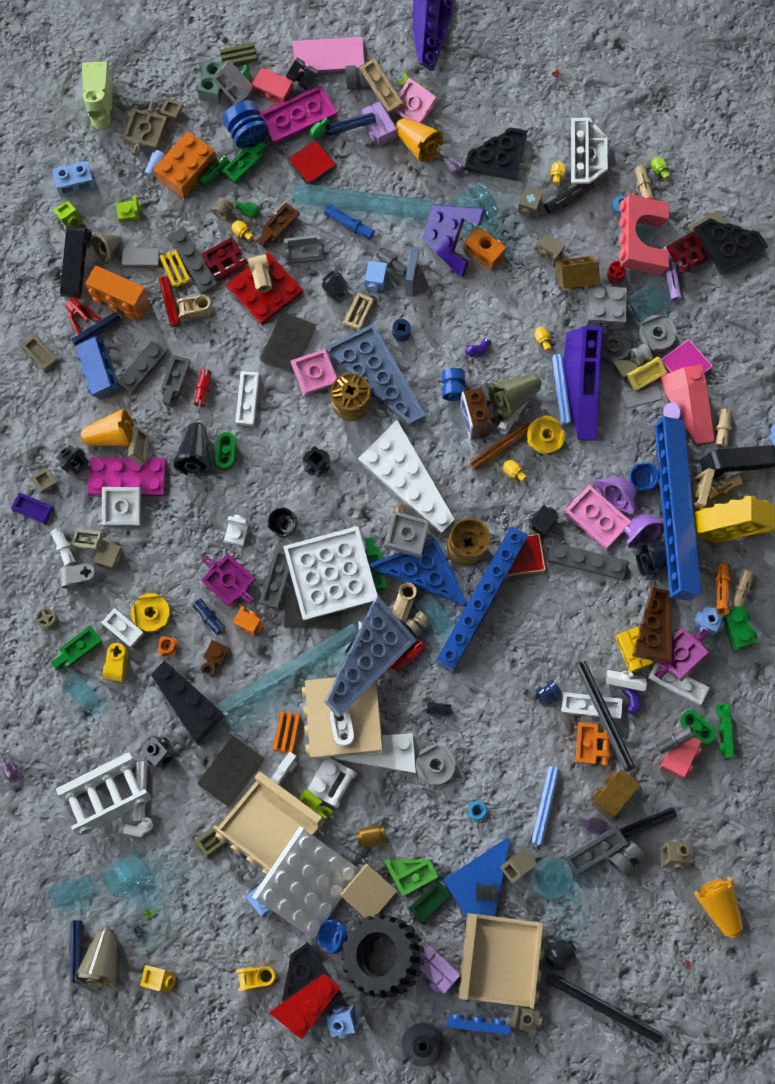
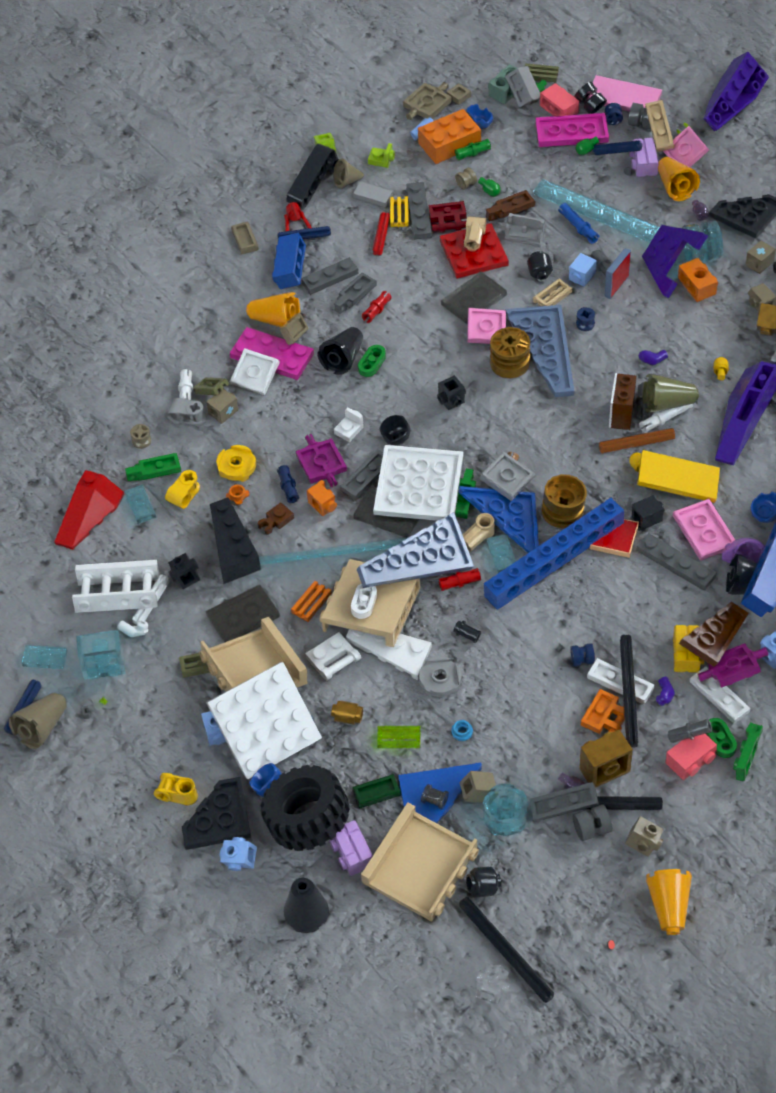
camera: 25 degrees right, 20 degrees down
(10, 770) = (43, 541): clear purple cylinder -> none
(32, 508) = (174, 350): dark purple tile -> none
(35, 717) = (90, 503): none -> red wedge
(44, 480) = (196, 331): dark tan plate -> none
(72, 460) = (236, 321): black brick -> none
(73, 178) = (344, 118): light blue brick -> none
(97, 93) = (398, 60): yellowish green piece -> none
(117, 293) = (337, 209): orange brick -> none
(122, 628) = (204, 466): white plate -> none
(158, 979) = (85, 756): yellow bracket -> none
(191, 307) = (403, 243): tan piece -> none
(204, 130) = (482, 118): none -> blue hair
(242, 230) = (475, 200): yellow cylinder -> none
(244, 162) = (505, 150): green hinge -> none
(245, 124) = (519, 120): blue wheel -> none
(247, 399) = (413, 329): white tile -> none
(288, 764) = (296, 625): white plate -> none
(306, 1006) = (211, 822): red wedge -> none
(312, 162) = (567, 169): red tile -> none
(313, 803) = (306, 659): lime plate -> none
(329, 82) = (613, 114): none -> dark blue wheel
(368, 892) = (321, 751): tan tile -> none
(401, 470) = (530, 431): white wing -> none
(411, 873) = (370, 759): bright green wing -> none
(418, 624) = (482, 555): dark tan wheel -> none
(441, 833) = (399, 733): none -> clear neon green tile
(453, 384) = (612, 366): blue wheel -> none
(478, 1024) = (367, 906): blue plate -> none
(518, 1015) = (422, 932): dark tan brick -> none
(545, 805) = (532, 750): light blue axle -> none
(554, 431) = (684, 432): yellow plate -> none
(554, 472) = (678, 476): none -> yellow tile
(561, 388) = (719, 414): light blue axle -> none
(618, 492) = (732, 511): medium lavender hat -> none
(626, 679) = (666, 669): white plate -> none

